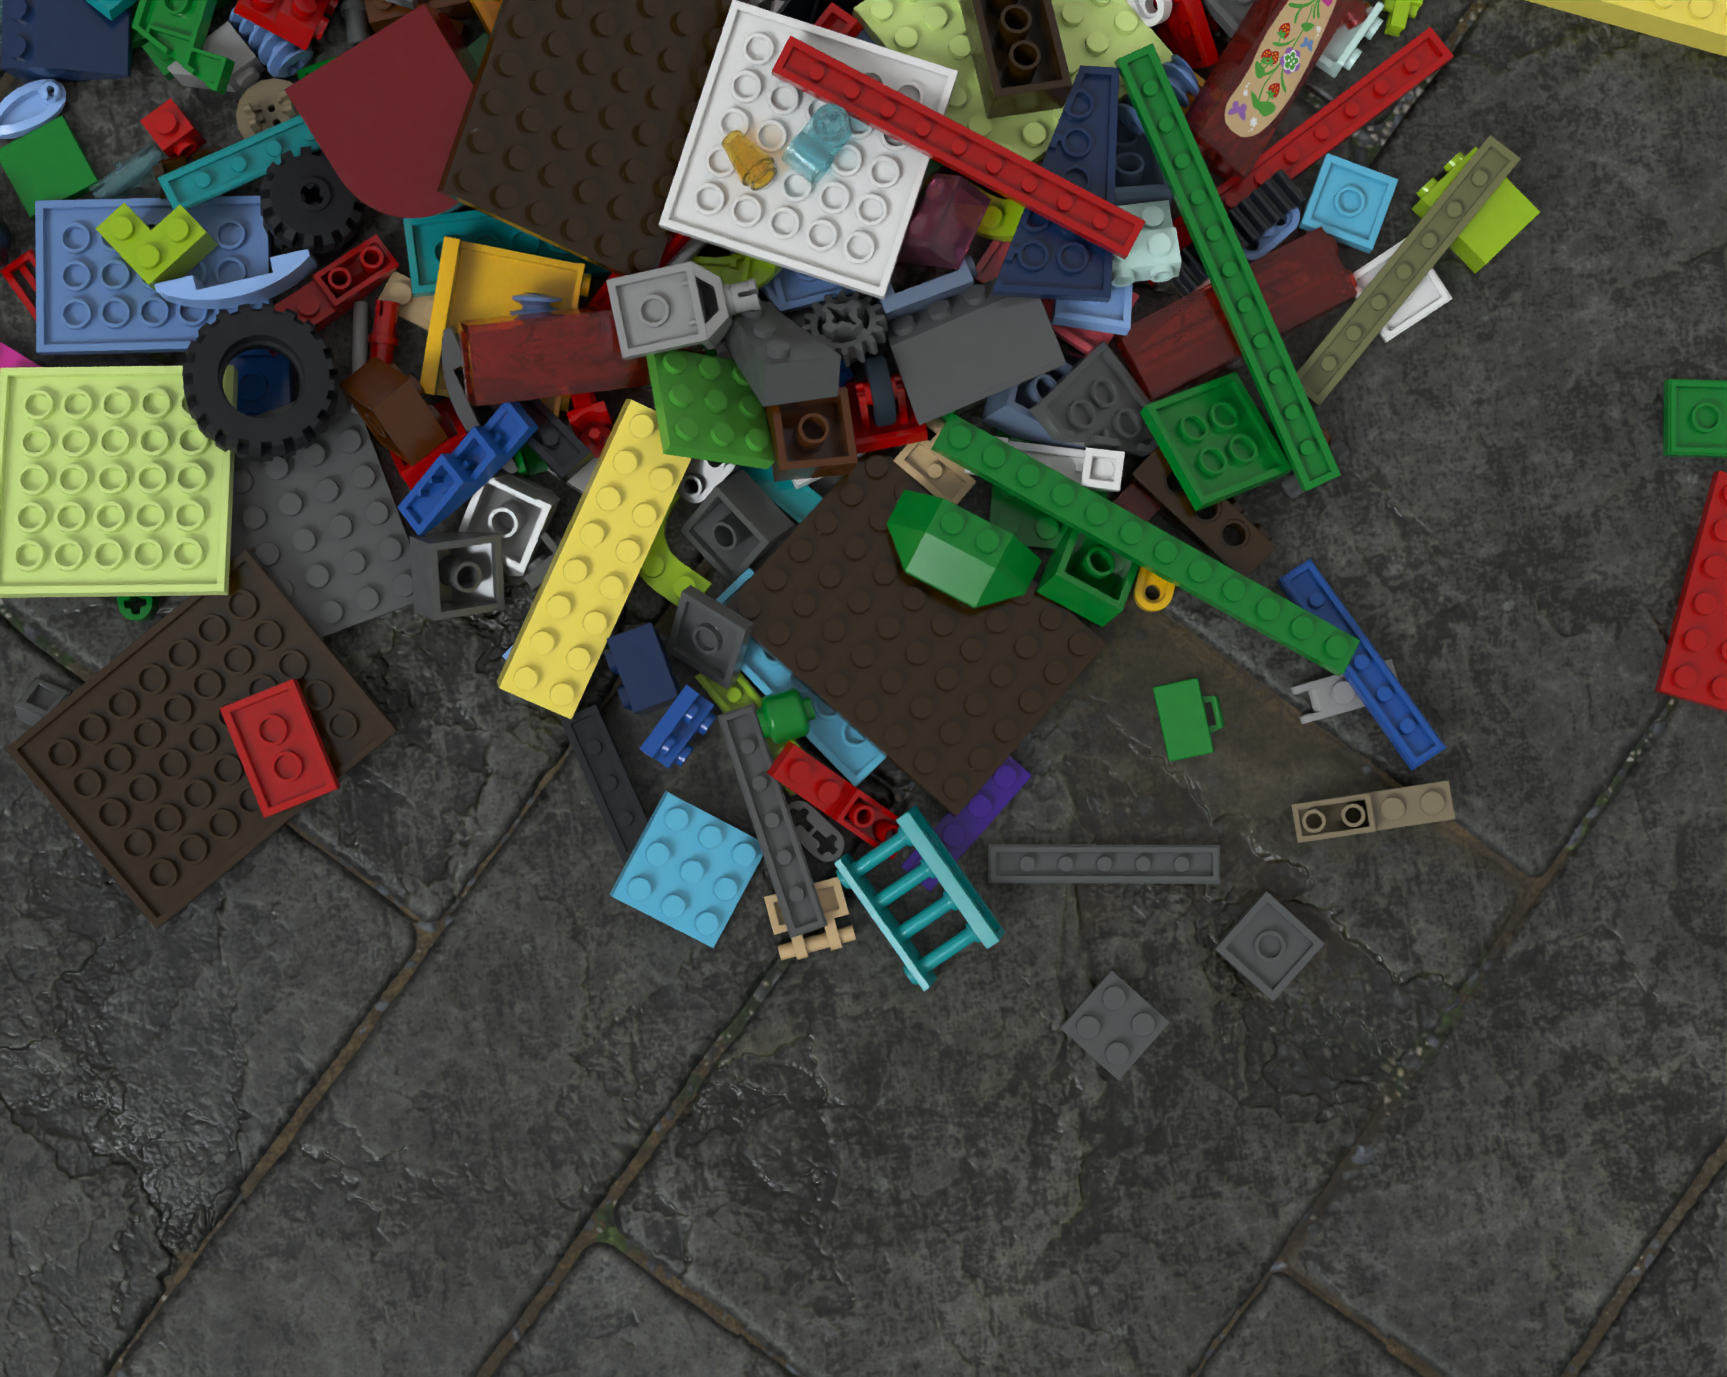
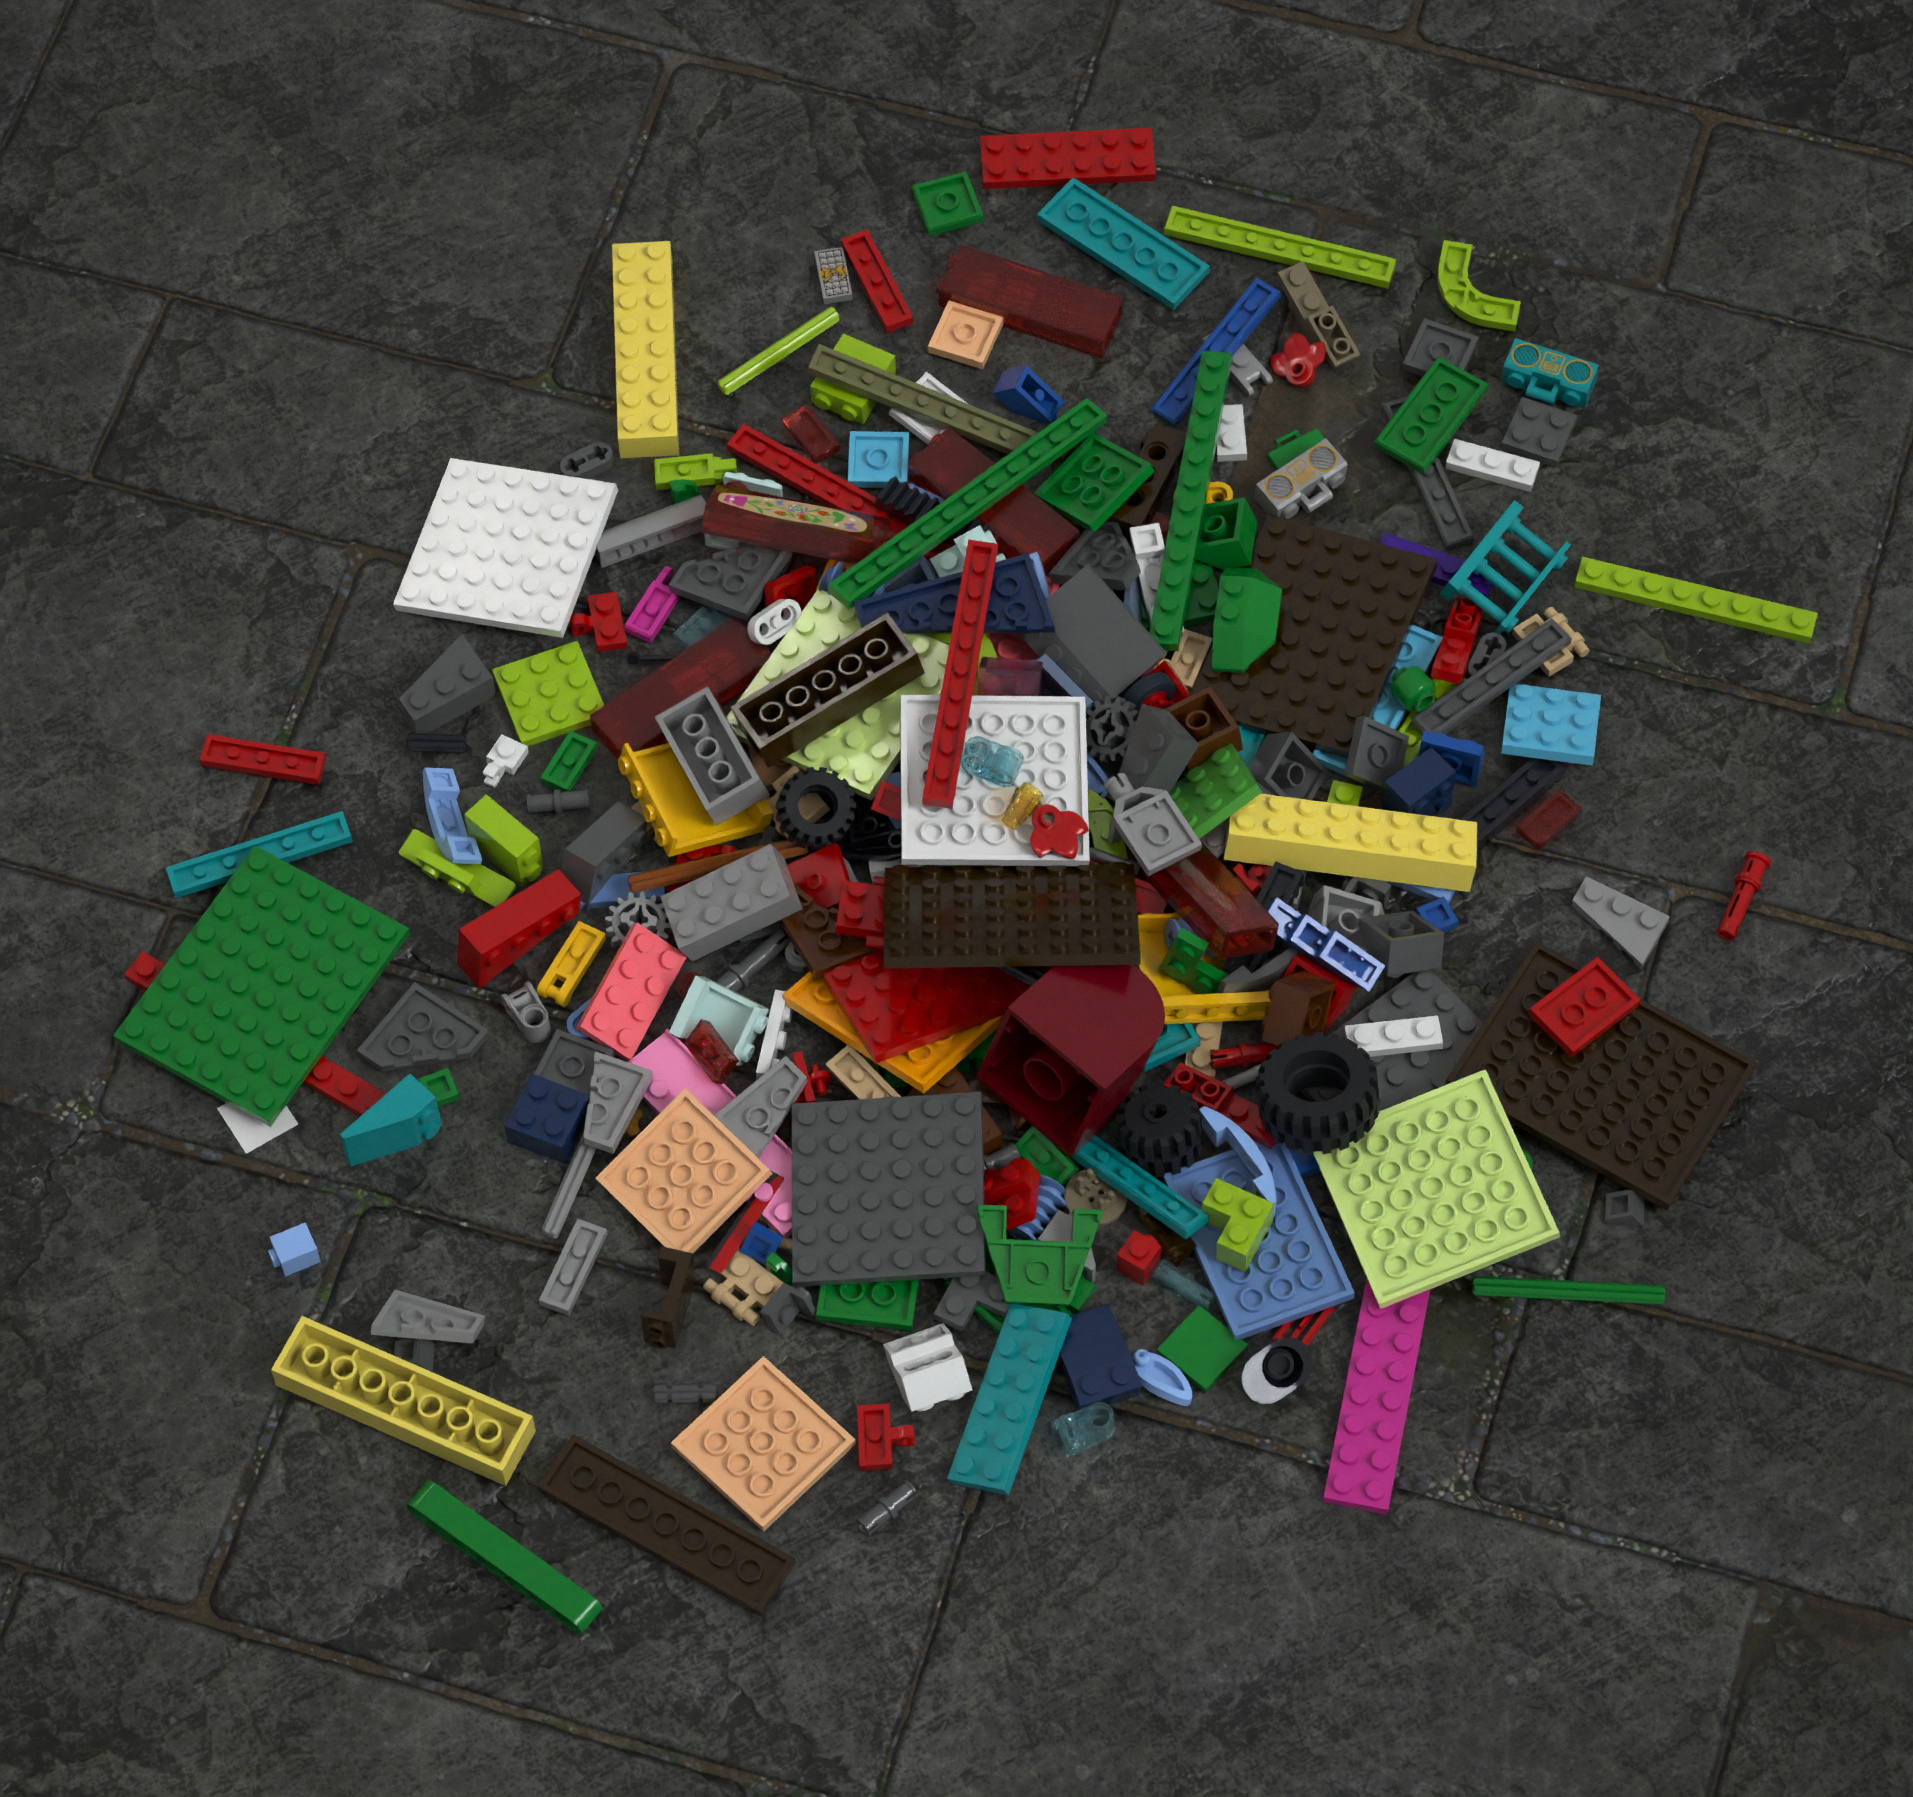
camera: 100 degrees left, 25 degrees down
(335, 516) = (1397, 1036): none -> white plate
(396, 1018) = (1747, 884): none -> red pin
(409, 851) = (1623, 919): none -> light grey wing
(484, 634) = (1439, 914): none -> blue plate
(494, 297) = (1184, 963): none -> green plate
(566, 817) = (1548, 819): none -> clear red plate
(696, 194) = (1059, 835): none -> red plate
(807, 1120) = (1696, 600): none -> lime plate
(1086, 947) = (1492, 465): none -> white plate
(1145, 712) = (1301, 478): none -> light grey piece
(1176, 895) = (1431, 415): none -> green tile
(1192, 1072) = (1549, 374): none -> teal piece
(1241, 644) = (1231, 436): none -> white plate
(1322, 764) = (1298, 356): none -> red plate
(1347, 1005) = (1466, 299): none -> lime plate
(1377, 413) = (1027, 395): none -> blue slope
(1413, 135) = (811, 434): none -> clear red plate
(1495, 370) = (965, 334): none -> light nougat plate
(1496, 805) = (1280, 246): none -> lime plate
(1518, 464) = (1032, 300): none -> clear red brick
(1550, 138) = (778, 350): none -> lime axle
(1568, 611) = (1123, 243): none -> teal plate
(1613, 289) = (877, 281): none -> red plate
(1641, 241) = (833, 275): none -> light grey tile

